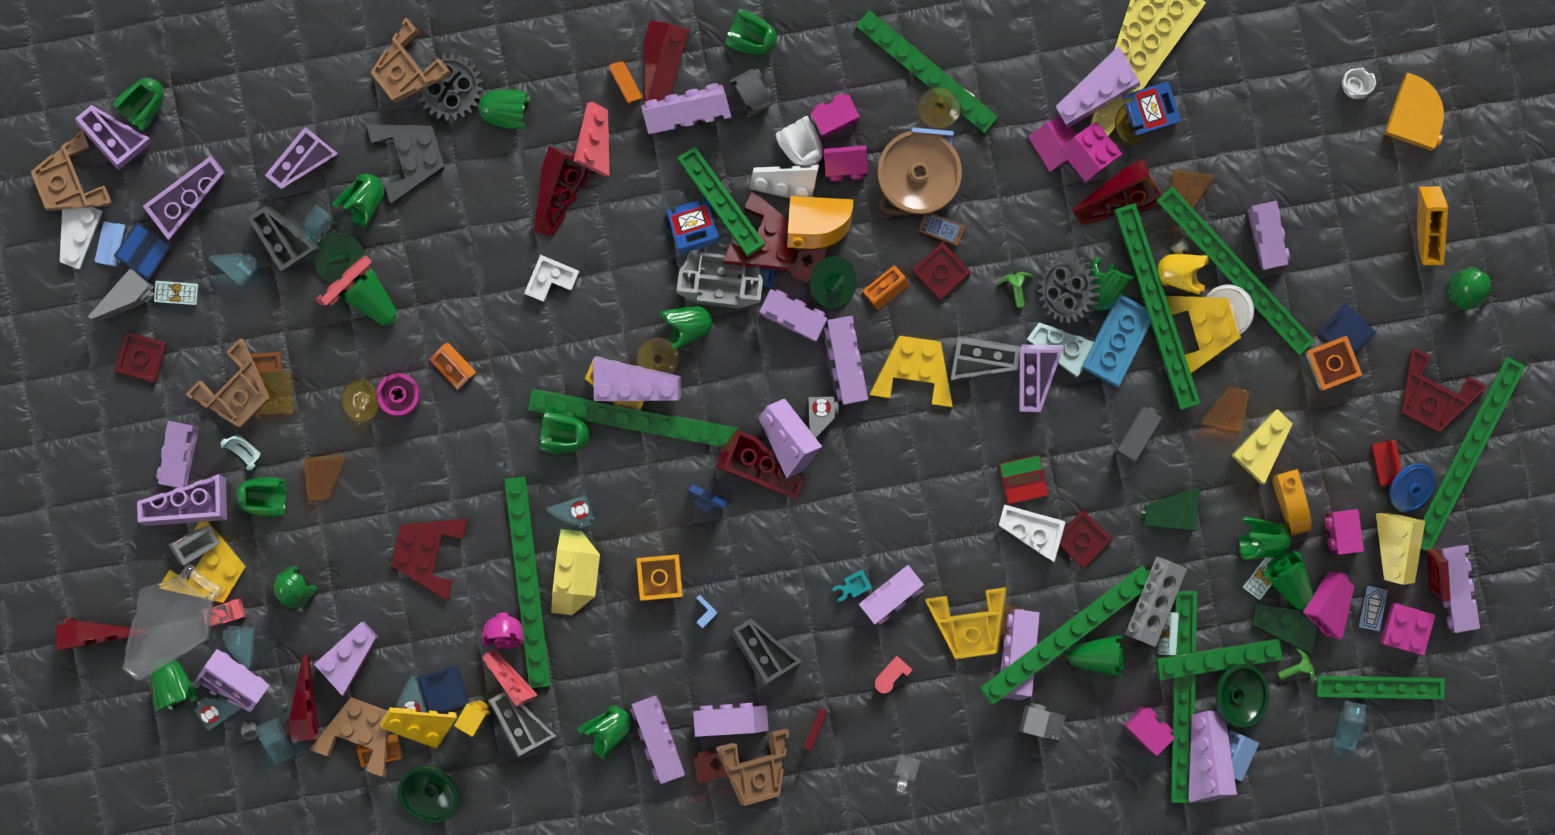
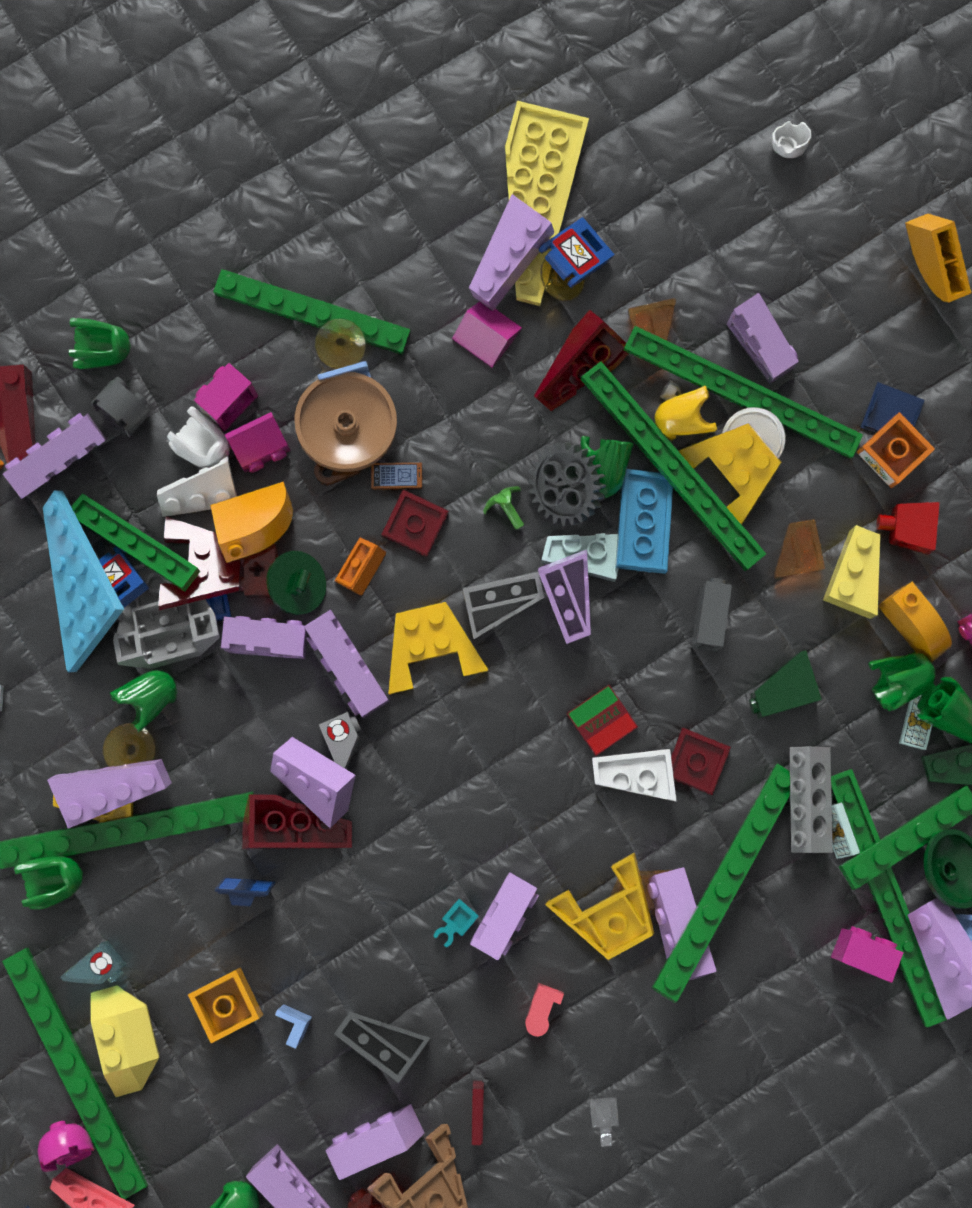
camera: 25 degrees left, 5 degrees down
(668, 224) = (82, 589): none -> medium azure wing
(1041, 722) = (737, 996): light grey wedge -> none
(1090, 151) = (528, 323): dark pink brick -> none
(1099, 656) = (771, 889): green cone -> none
(1322, 426) = (912, 526): none -> red torso
(1416, 114) = (868, 147): light orange brick -> none

